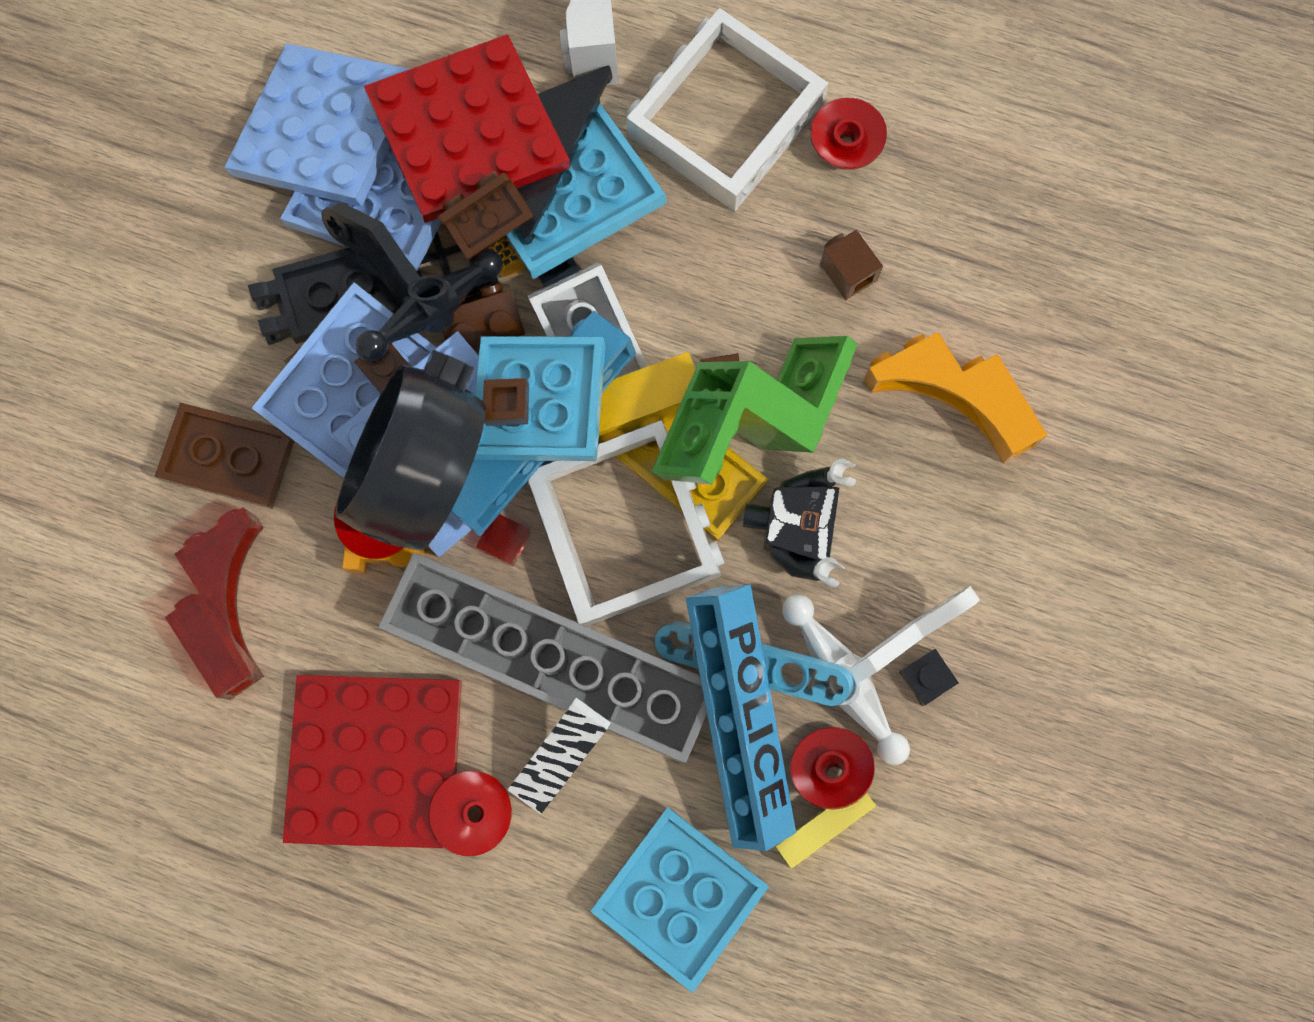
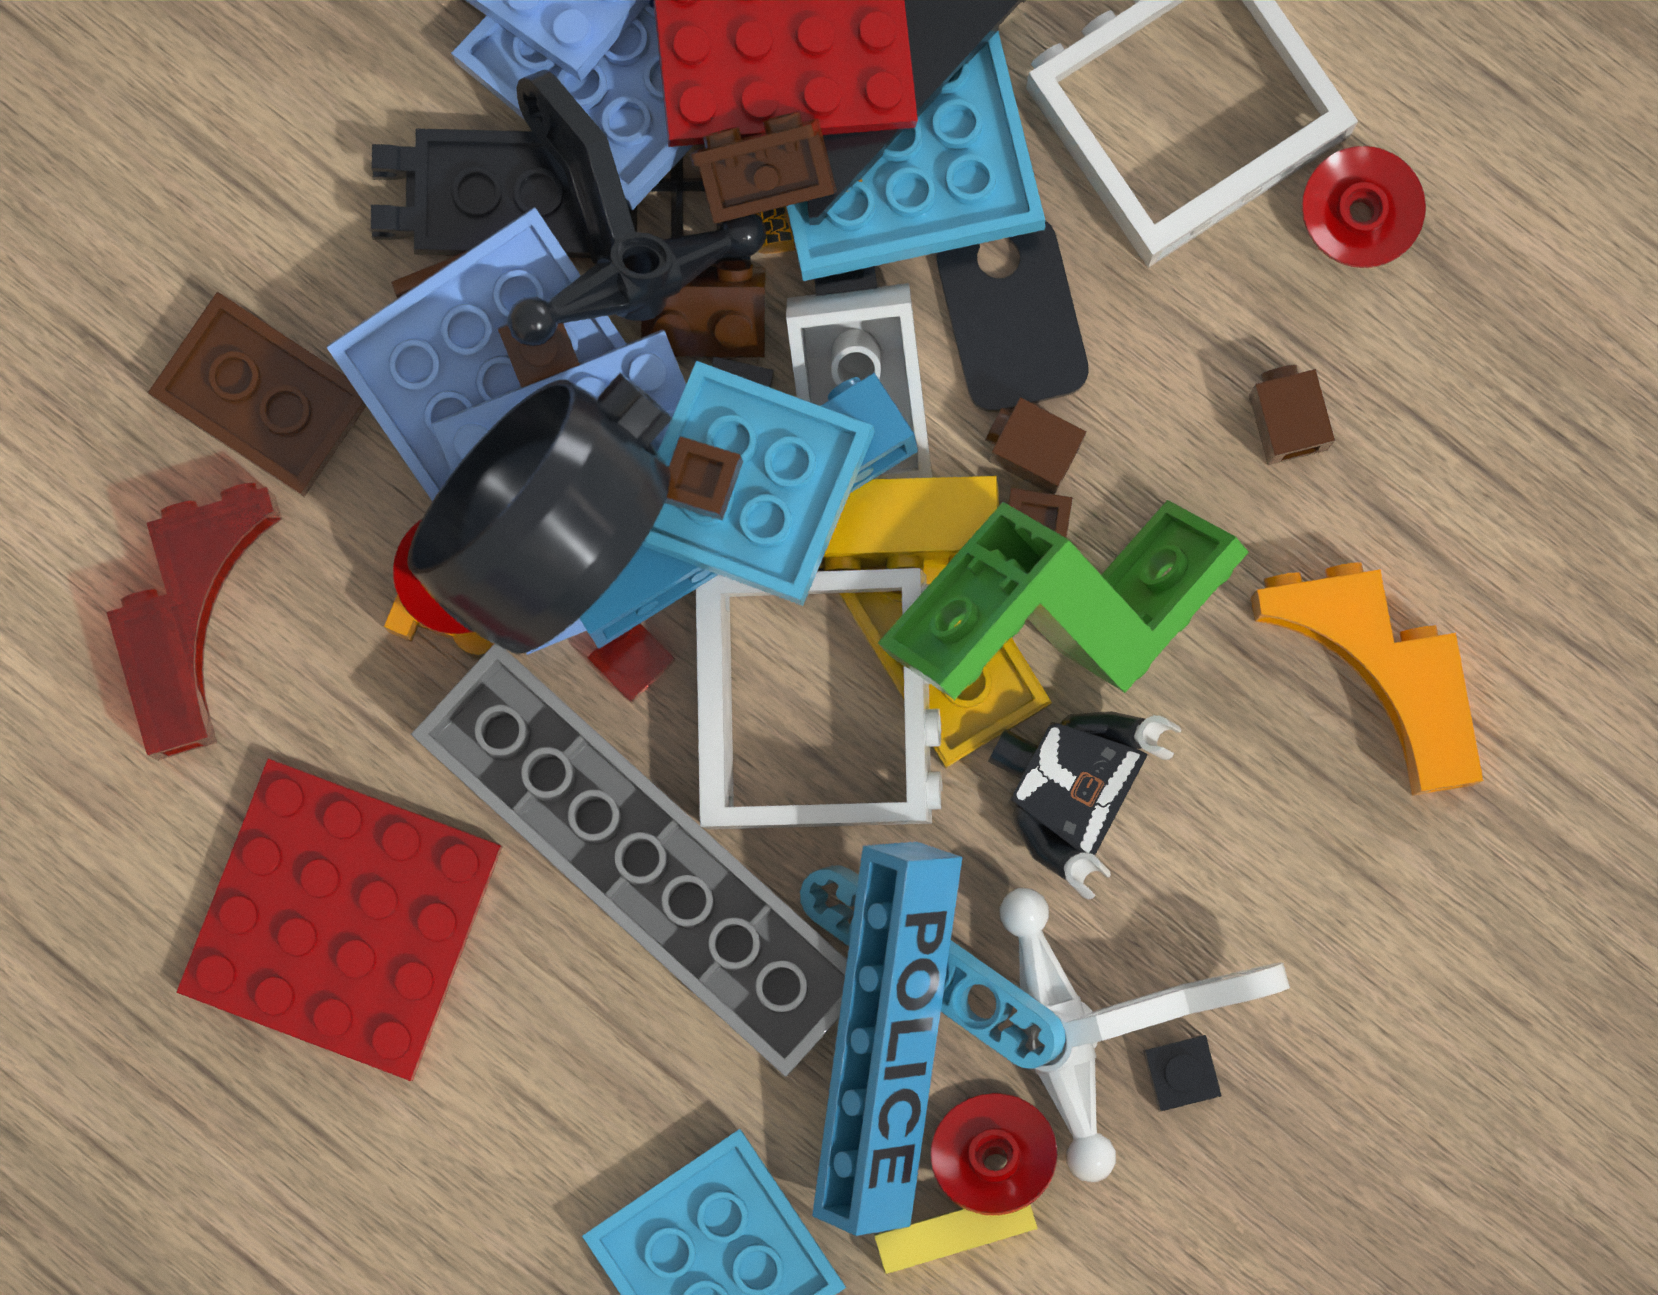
camera: 15 degrees right, 5 degrees up
(450, 807) = (427, 1035): red dish -> none
(559, 756) = (609, 1004): tile -> none
(671, 272) = (1017, 330): none -> black piece
(704, 330) = (1034, 444): none -> reddish brown brick

